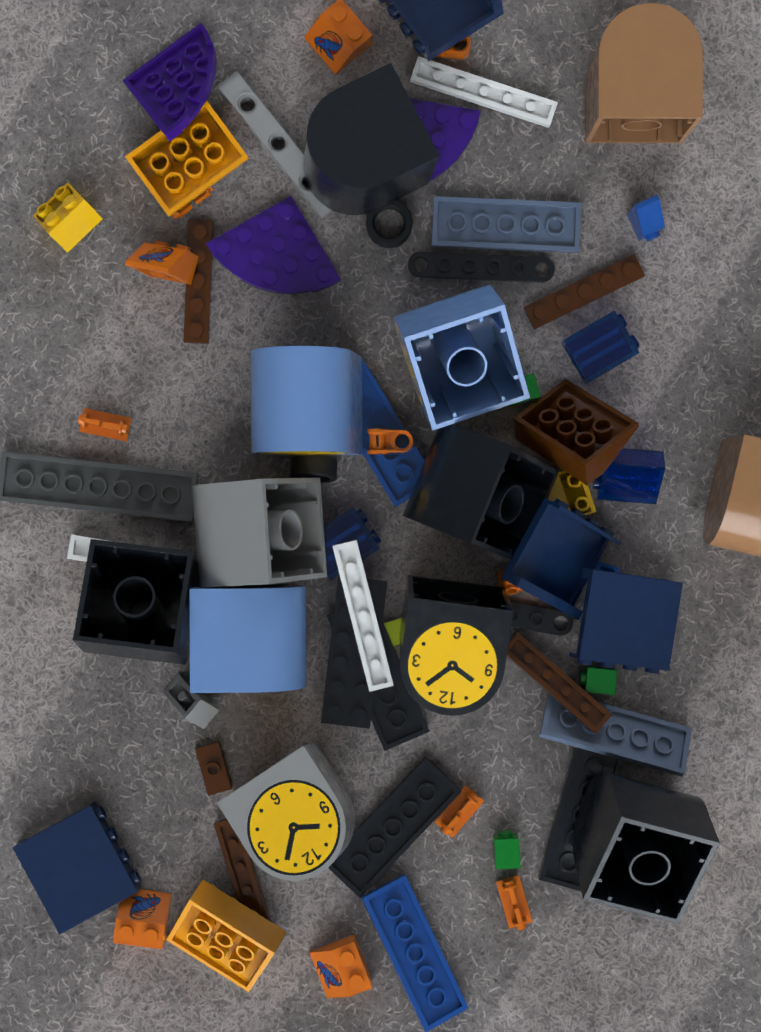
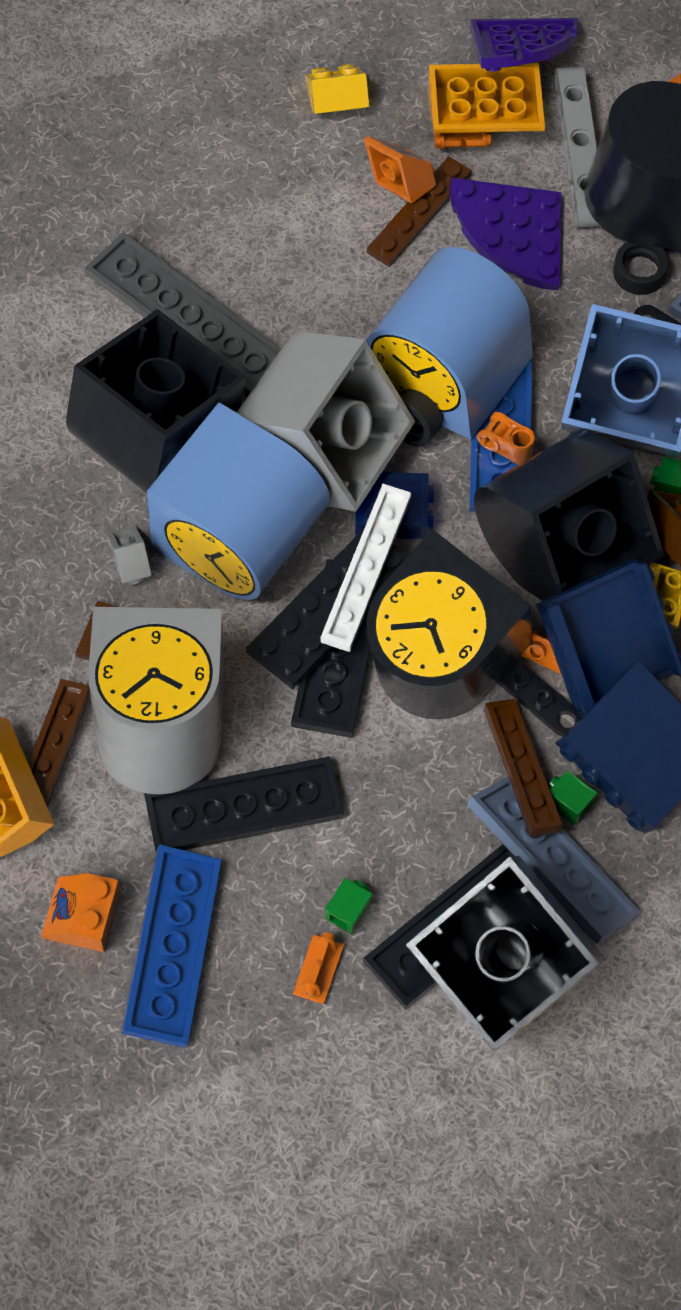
camera: 35 degrees right, 25 degrees down
(104, 424) = (236, 270): orange hinge -> none
(459, 811) = (325, 837): orange hinge -> none

